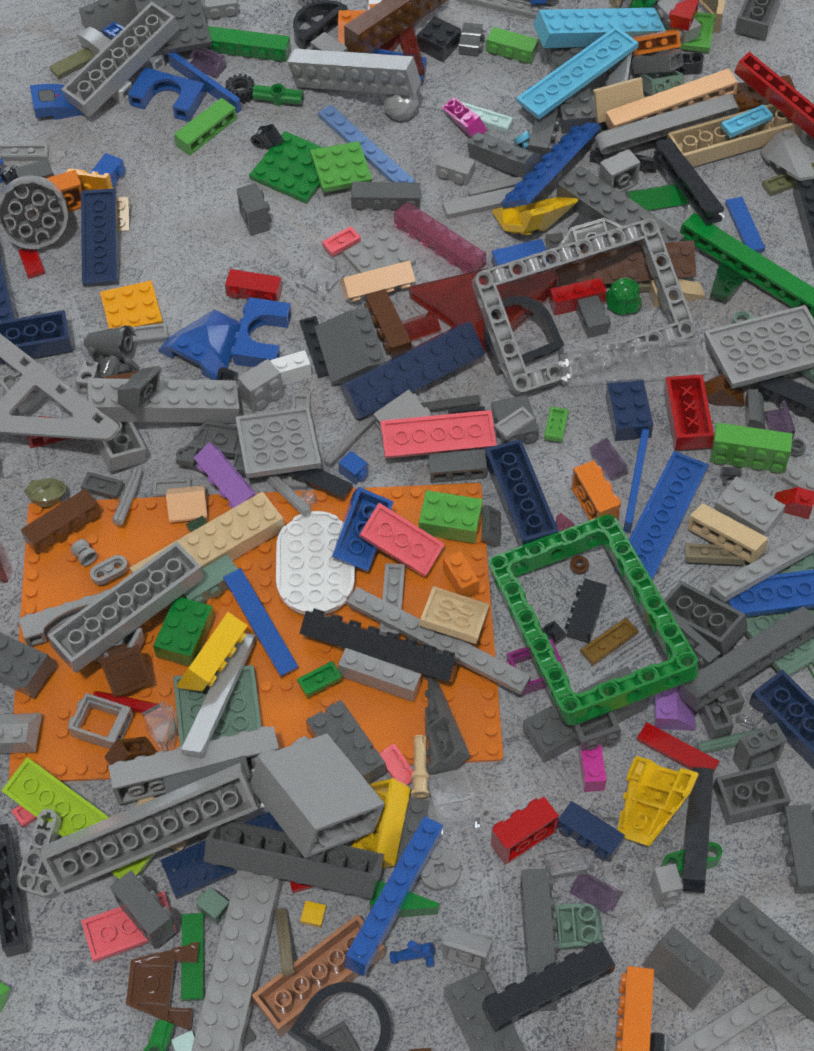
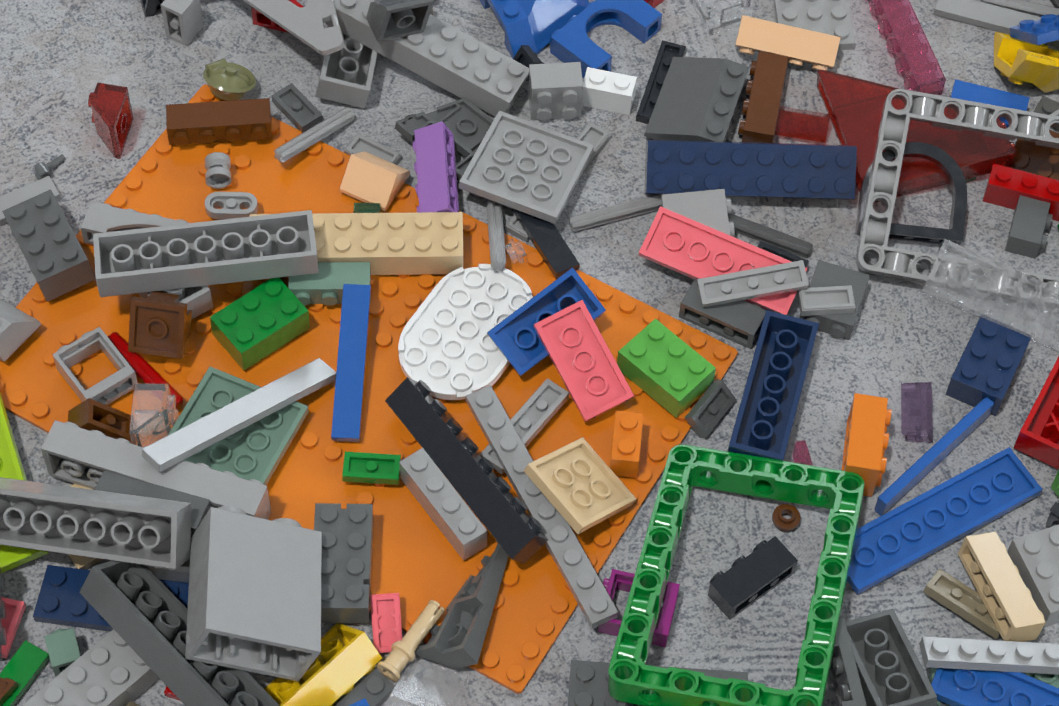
camera: 30 degrees right, 0 degrees up
(213, 654) = (267, 364): yellow slope -> none
(353, 468) = (596, 246): blue brick -> none
(466, 437) = (752, 283): none -> light grey plate
(554, 632) = (691, 580): black tile -> none
(556, 424) = (883, 332): bright green plate -> none
(609, 641) = (755, 632): pearl gold tile -> none

